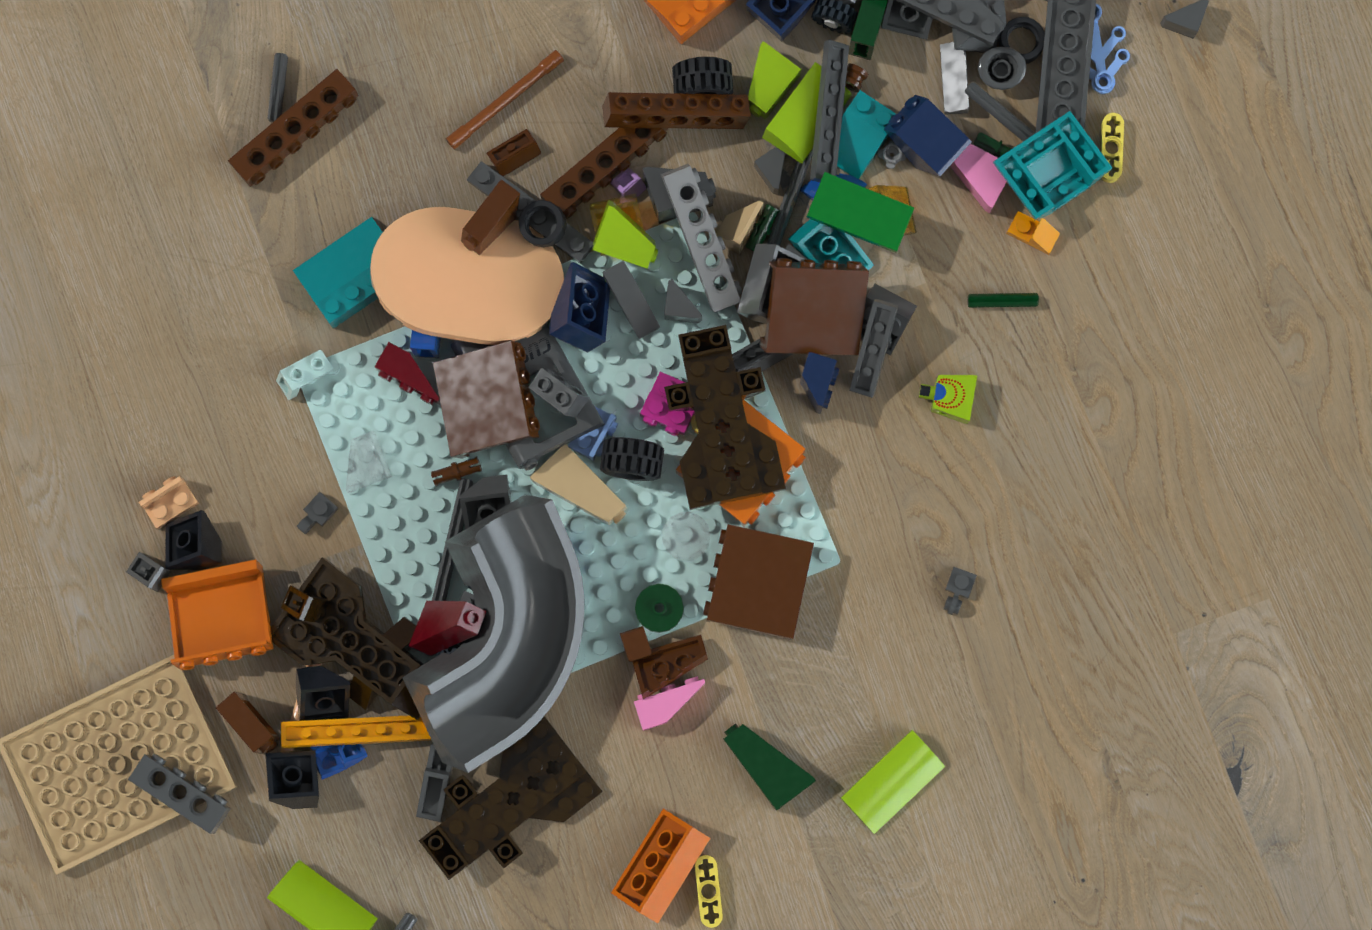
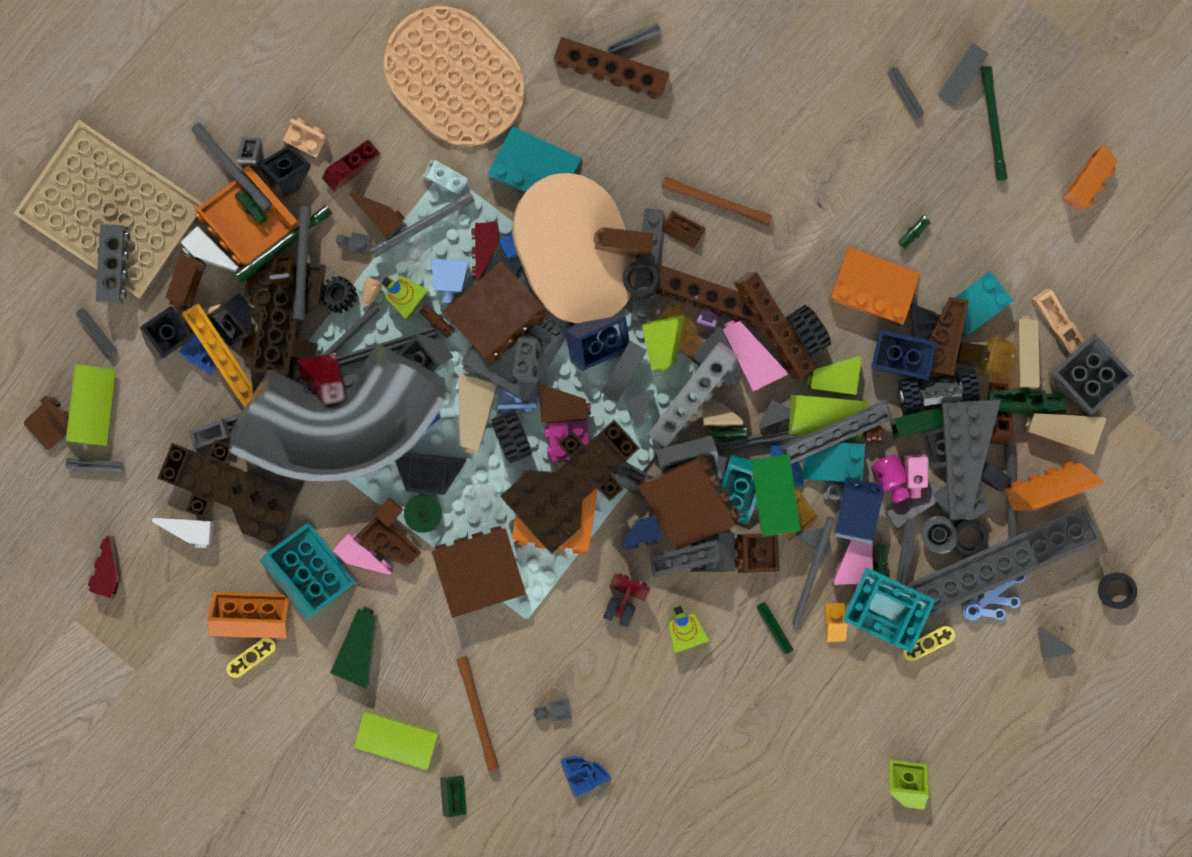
camera: 55 degrees right, 5 degrees up
(104, 610) = (206, 138): none -> dark grey piece
(199, 302) = (454, 76): none -> light nougat tile
(209, 602) = (251, 207): none -> dark green pin
(222, 680) = (201, 246): none -> white slope
(229, 470) = (350, 165): none -> dark red slope
(244, 858) = (96, 332): none -> dark grey axle
(277, 641) = (250, 268): none -> dark green piece
(305, 465) = (381, 215): none -> reddish brown slope
(340, 478) = (387, 244): none -> dark grey piece
(348, 607) = (304, 223): none -> dark grey piece
(376, 562) = (345, 301): none -> black tyre
(381, 525) = (370, 291): none -> light nougat cone
(407, 490) = (404, 295): none -> lime torso
(412, 572) = (349, 333): none -> dark grey piece
(417, 430) = (449, 277): none -> light blue torso
(529, 876) = (191, 531): none -> white slope
(617, 575) = (428, 472): none -> black wing
(628, 389) = (561, 406): none -> reddish brown slope
(649, 773) = (307, 571): none -> teal slope
(707, 153) = (753, 359): none -> bright pink slope
(869, 430) = (625, 585): none -> dark red plate
(906, 80) = (891, 474): none -> dark pink piece
(910, 272) = (757, 553): none -> reddish brown plate
(920, 55) = (915, 465): none -> bright pink torso
(934, 199) = (812, 538): none -> dark grey slope
(963, 686) = (489, 753): none -> dark orange piece
(965, 222) = (813, 570): none -> dark grey piece
(989, 754) = (453, 796): none -> dark green slope
(1047, 597) = (583, 775): none -> blue brick
(1252, 251) = (909, 783): none -> lime slope

